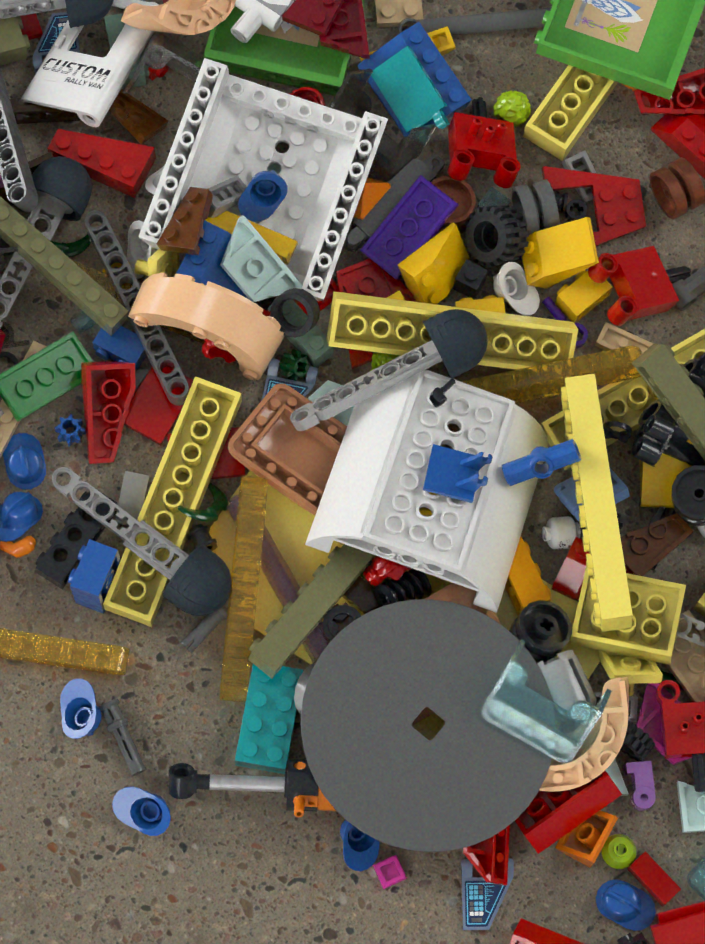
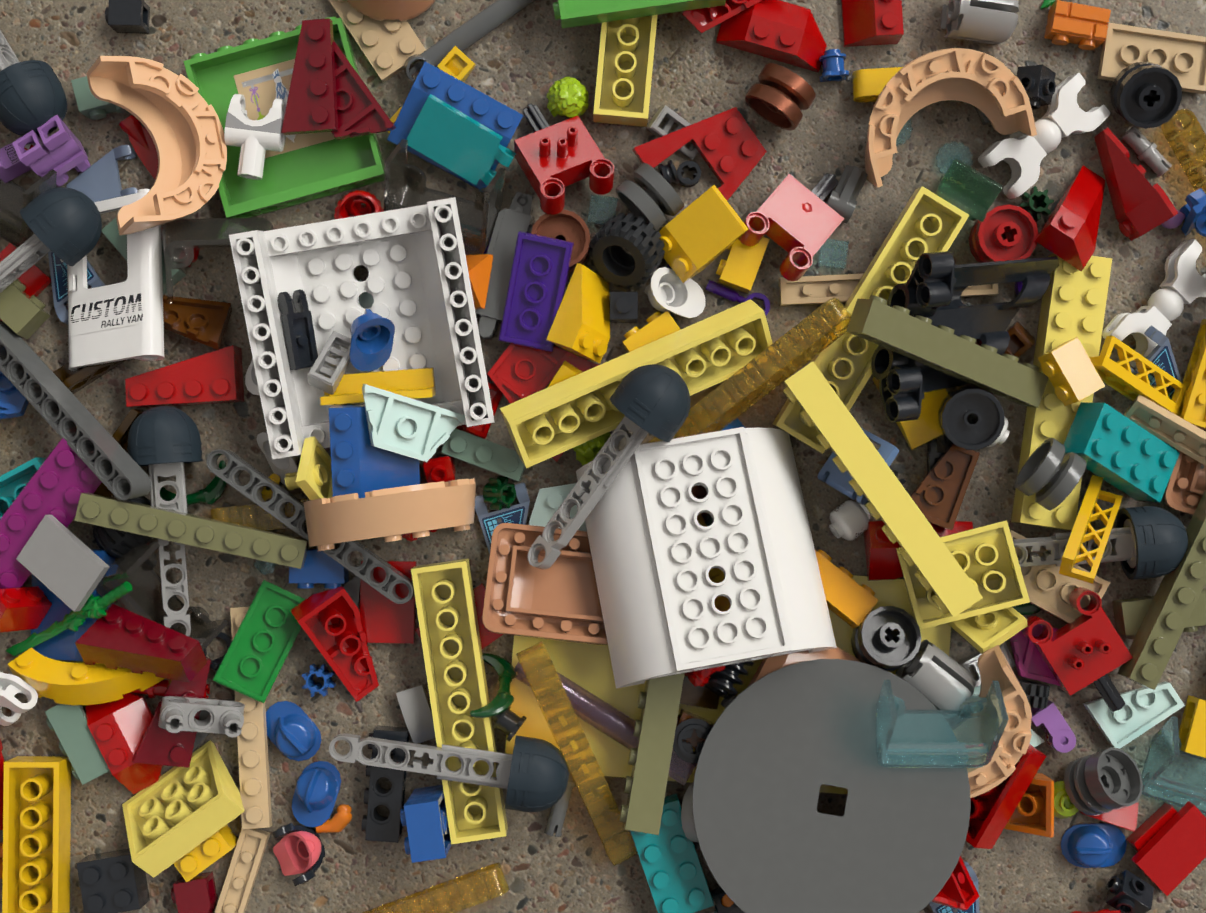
camera: 20 degrees left, 15 degrees up
(187, 222) = (312, 421): reddish brown wing -> none
(211, 158) = (298, 330): none -> black hinge
(309, 303) = (473, 467): black tyre -> none
(438, 397) = (667, 470): black hand -> none
(455, 473) = (729, 548): blue plate -> none
(528, 468) = (808, 484): blue piece -> none
(622, 436) = (863, 396): black piece -> none
(657, 328) = (833, 254): none -> clear light blue tile
(658, 842) = (1103, 782): none -> dark grey wheel

